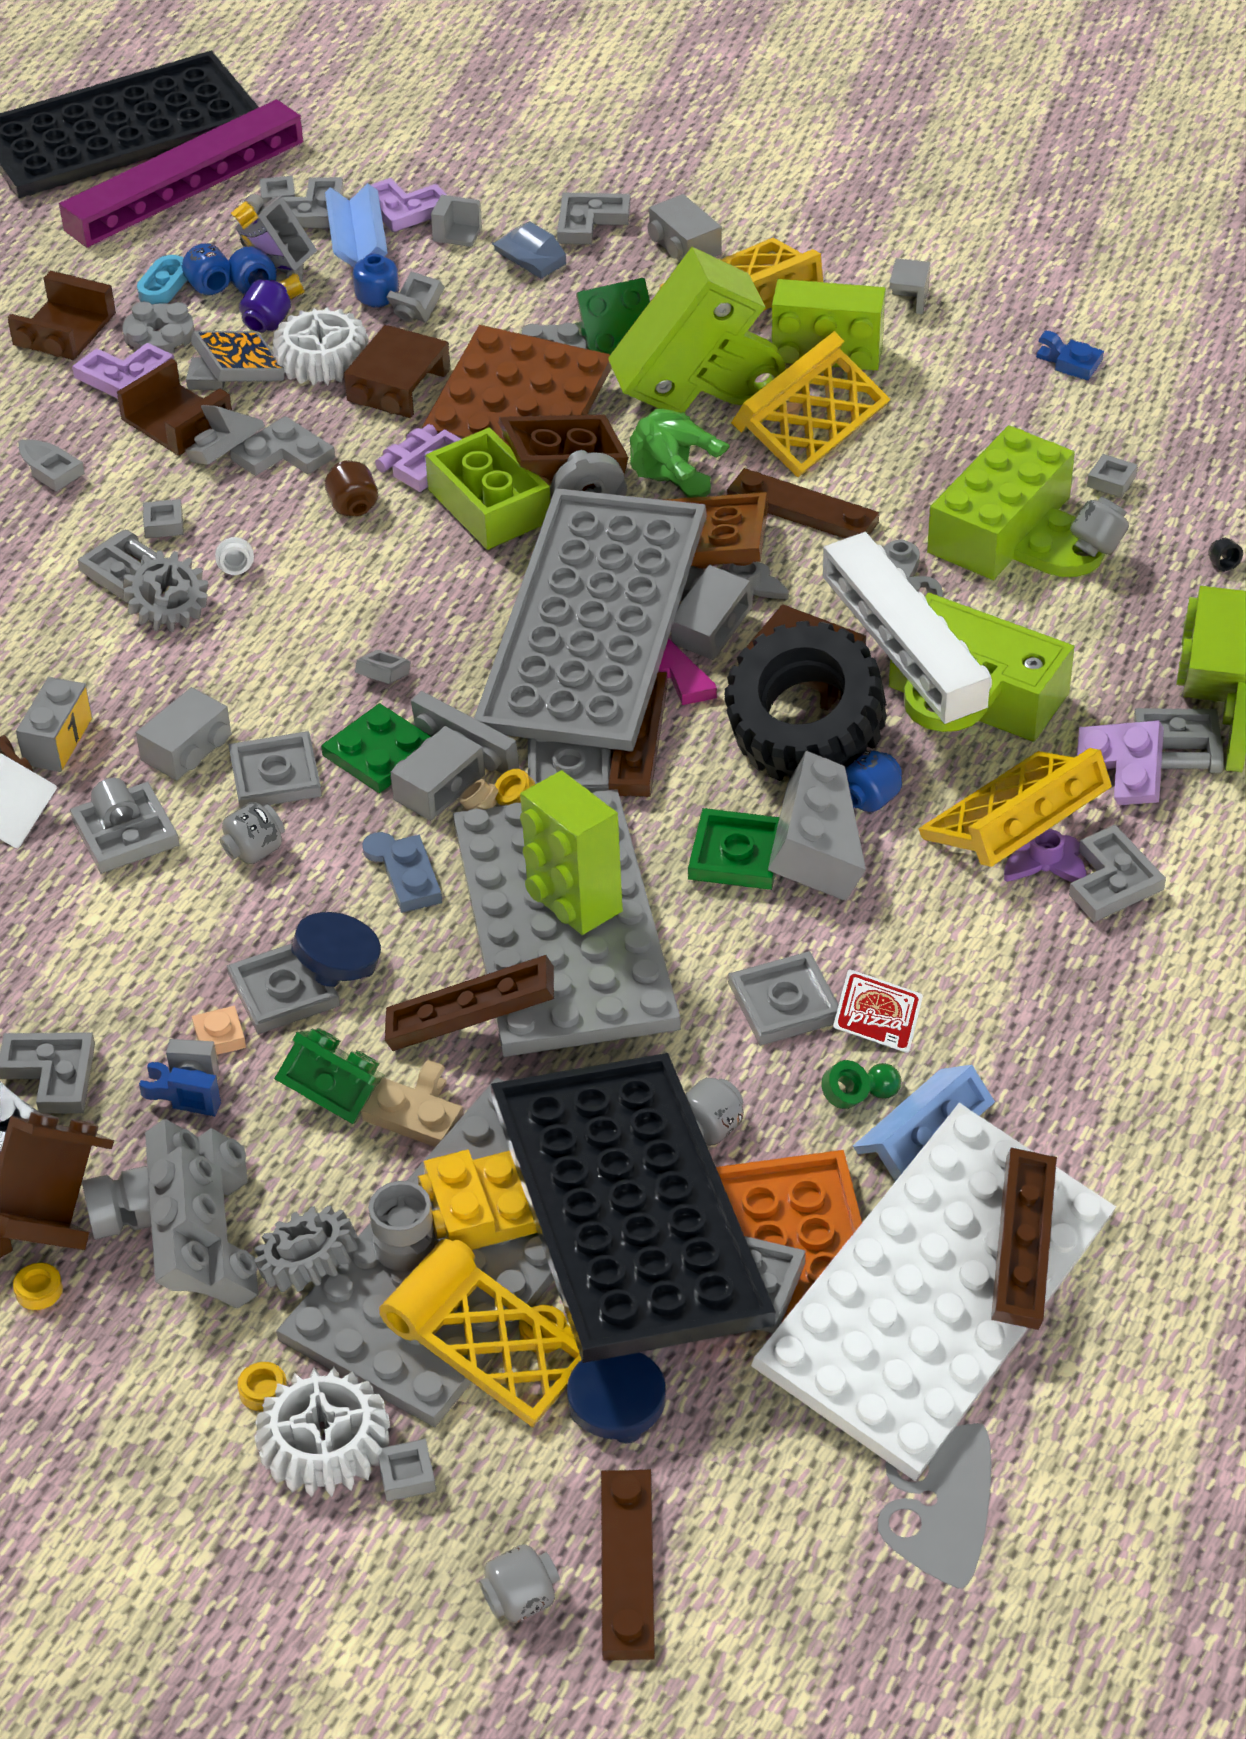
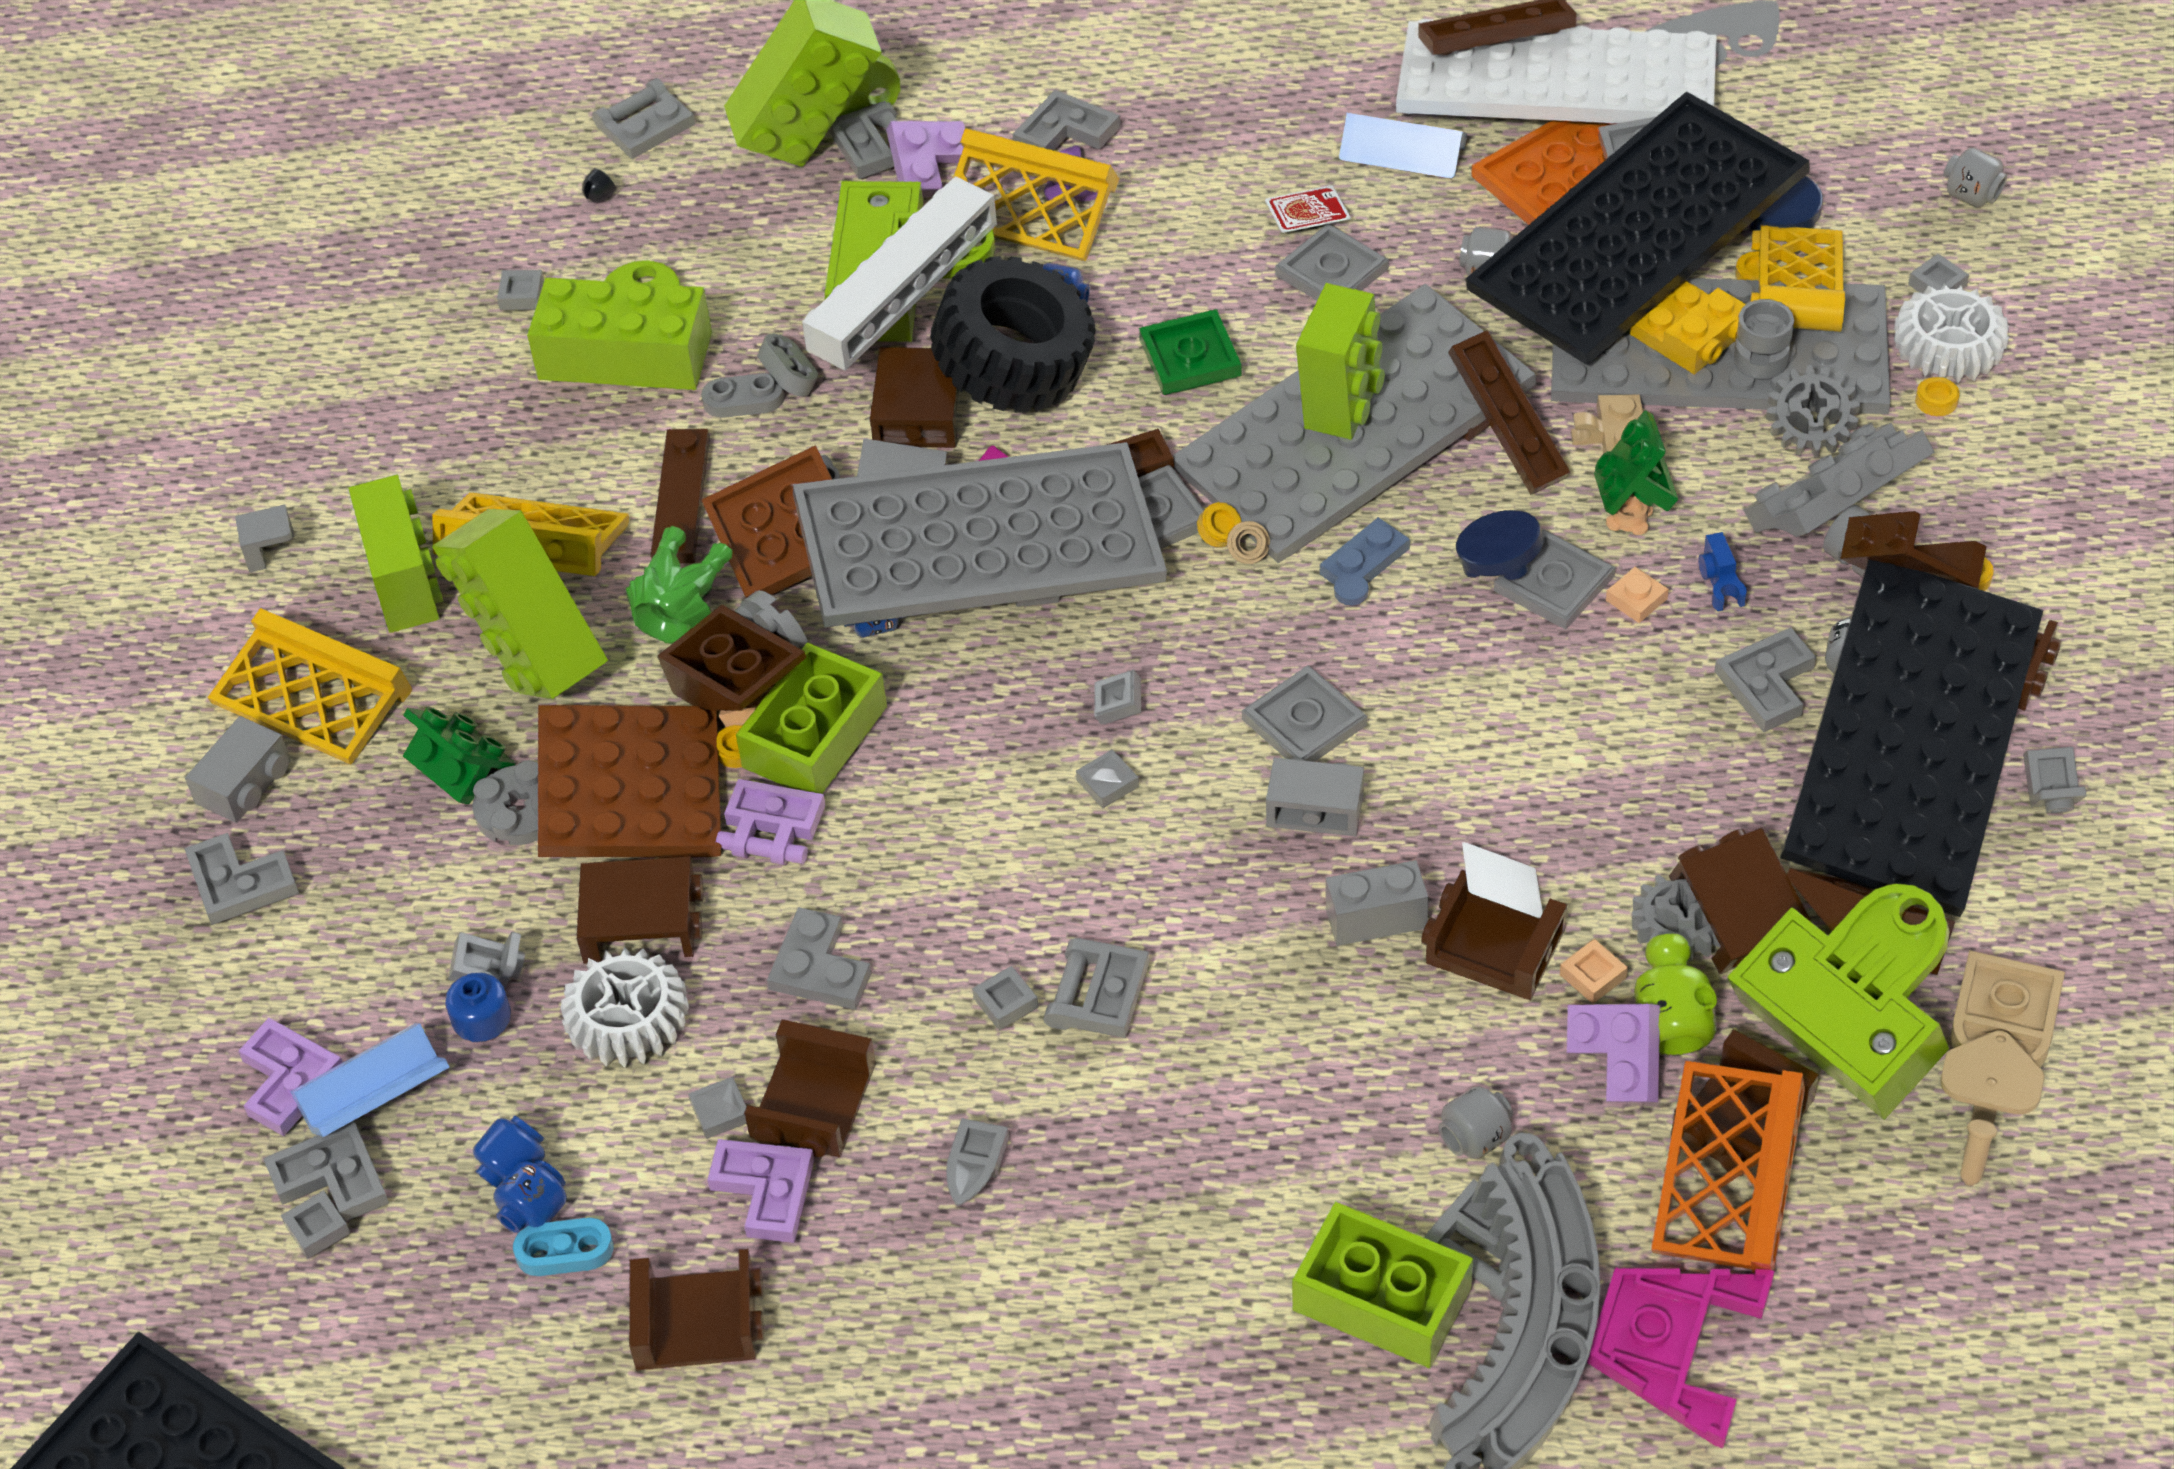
camera: 115 degrees left, 5 degrees up
(123, 824) = (1462, 782): light grey plate -> none
(147, 582) = (1128, 918): light grey gear -> none
(172, 319) = (654, 1180): light grey plate -> none
(180, 173) = (319, 1353): magenta brick -> none
(192, 1055) = (1690, 580): light grey plate -> none
(227, 432) = (841, 1008): light grey slope -> none
(234, 556) = (1027, 900): white plate -> none
(237, 356) = (686, 1076): tile -> none
(252, 832) = (1408, 672): light grey head -> none
(265, 305) = (573, 1100): dark purple head -> none
(278, 234) = (452, 1129): light grey torso -> none
(313, 639) = (1107, 778): none -> light grey tile
(351, 488) = (868, 846): reddish brown head -> none
(374, 746) = (1223, 654): green plate -> none
(432, 715) = (1176, 587): light grey plate -> none
(437, 773) = (1238, 582): light grey brick -> none
(456, 220) = (307, 1005): light grey panel -> none
(532, 249) = (328, 909): sand blue slope -> none
(627, 1565) = (1902, 149): reddish brown plate -> none
(818, 830) = (1147, 290): light grey wedge -> none
(880, 1081) = (1402, 191): green plate -> none
(1072, 359) = (328, 382): blue plate -> none
(1099, 526) = (633, 246): light grey head -> none

